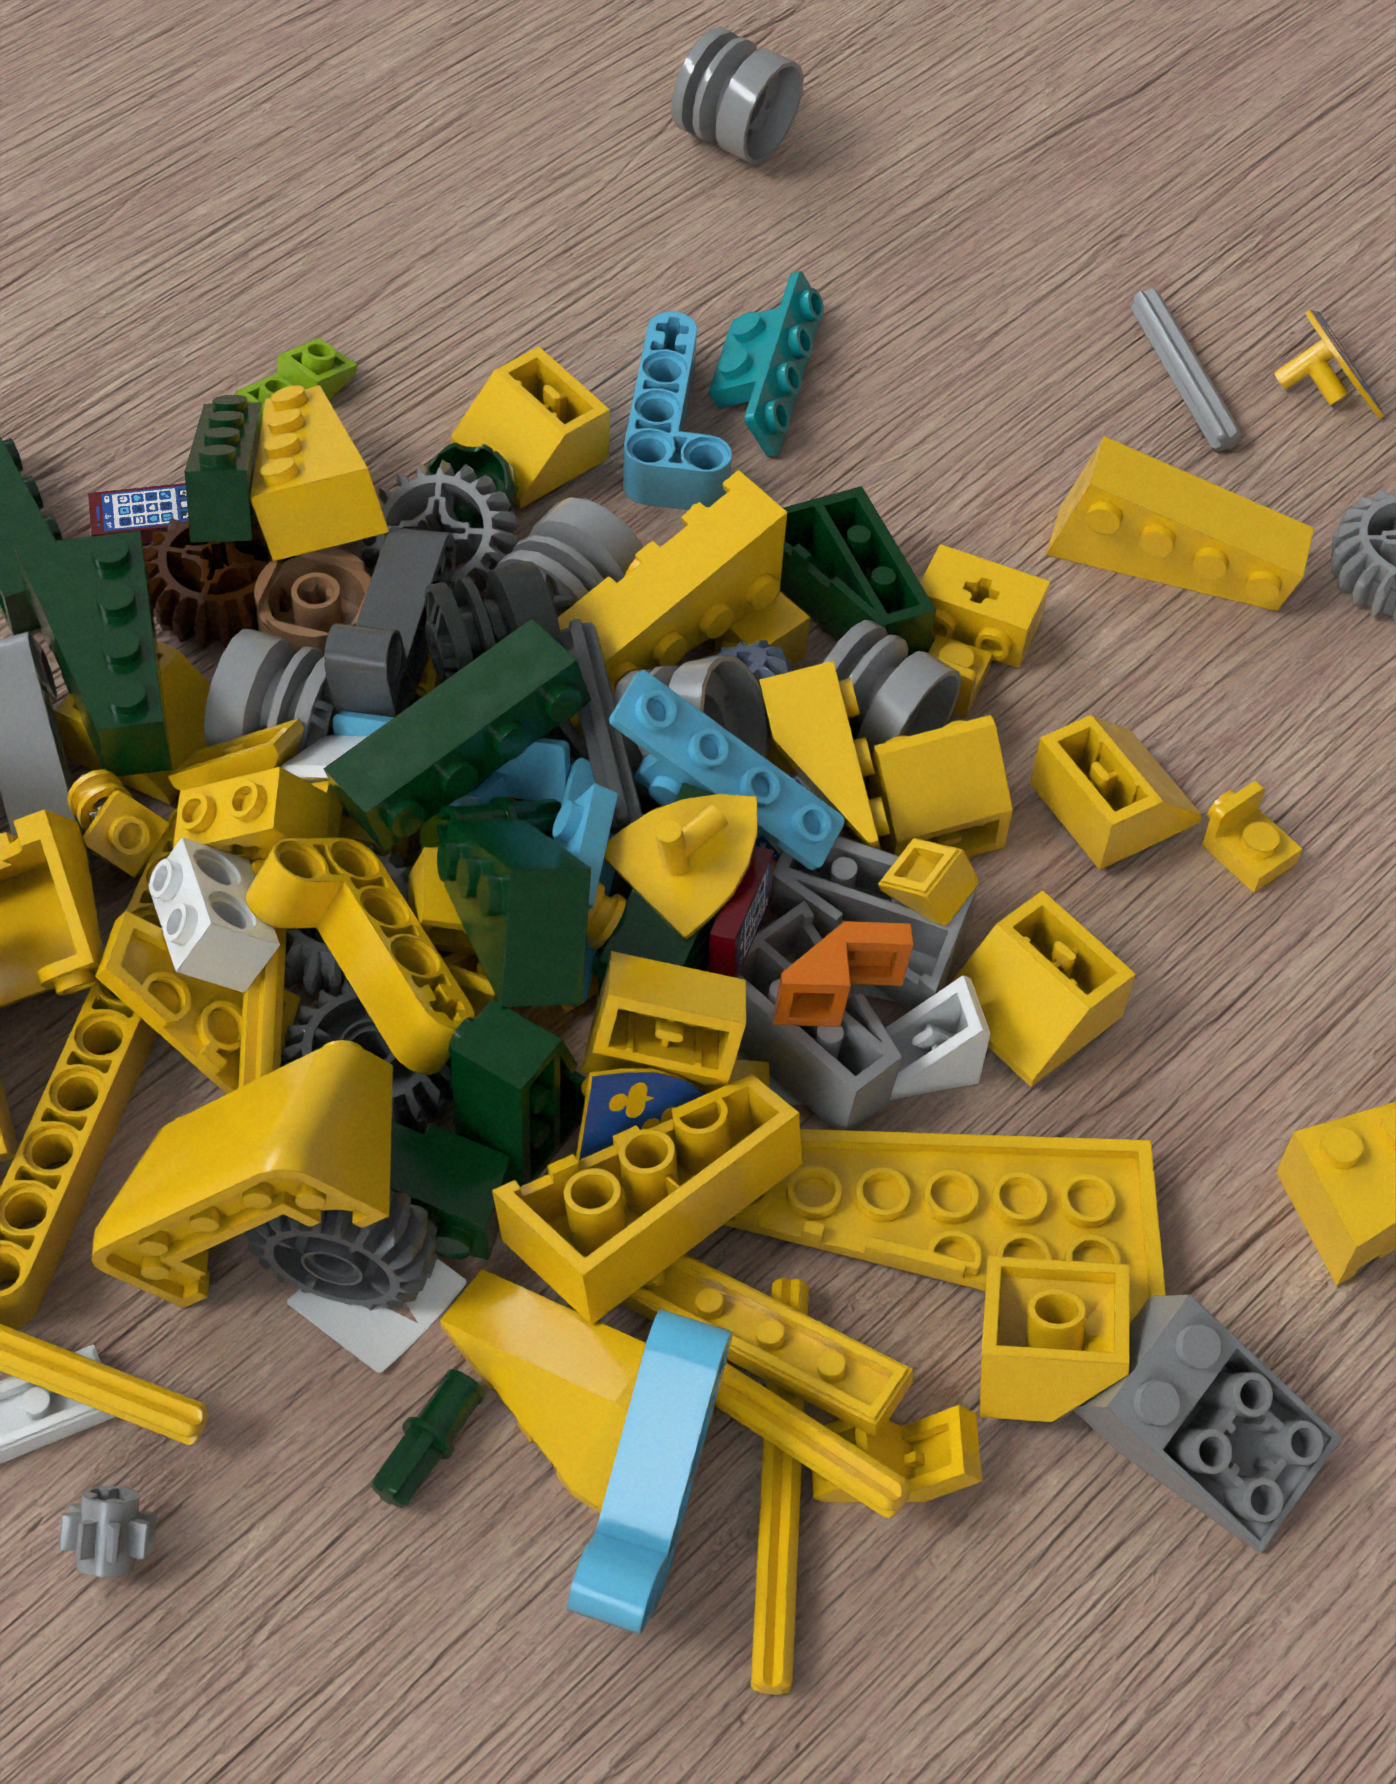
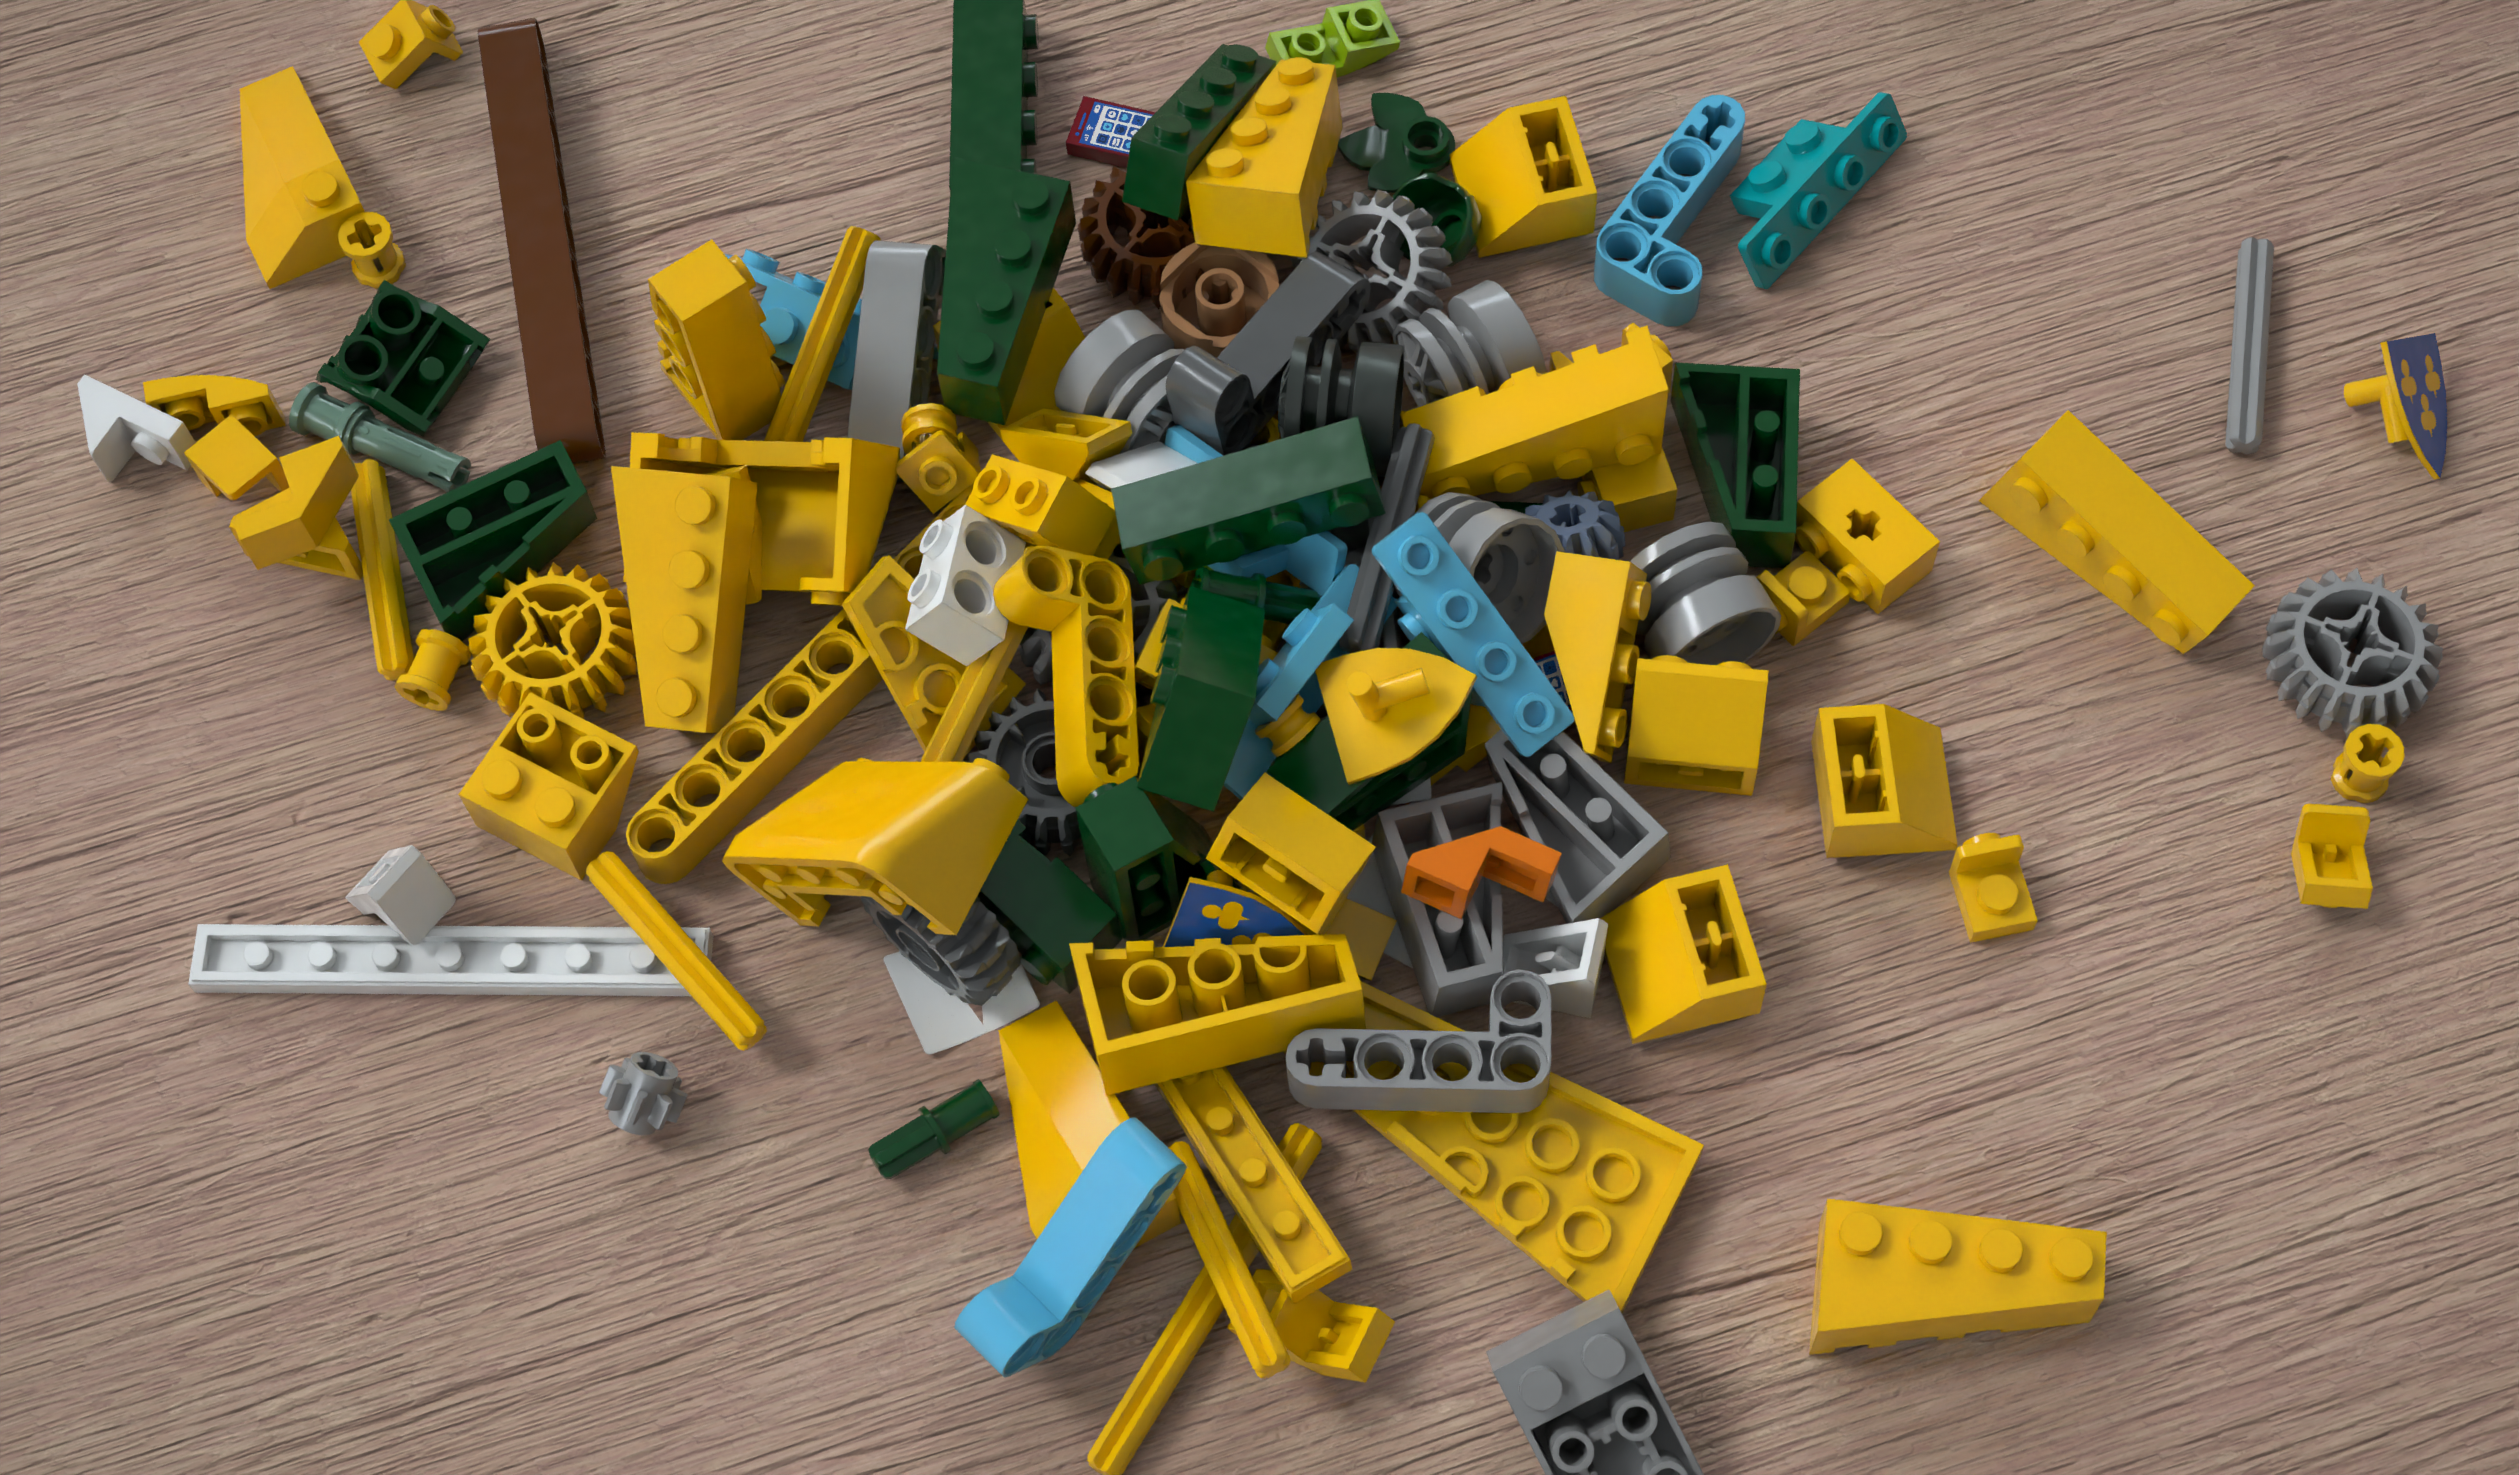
camera: 35 degrees right, 10 degrees up
(400, 439) = (1393, 143): none -> dark green plate
(742, 916) = (1422, 779): dark red tile -> none
(798, 1209) = (1420, 1054): none -> light grey beam
(931, 880) = (1621, 813): yellow slope -> none
(1051, 1335) = (1495, 1280): yellow slope -> none

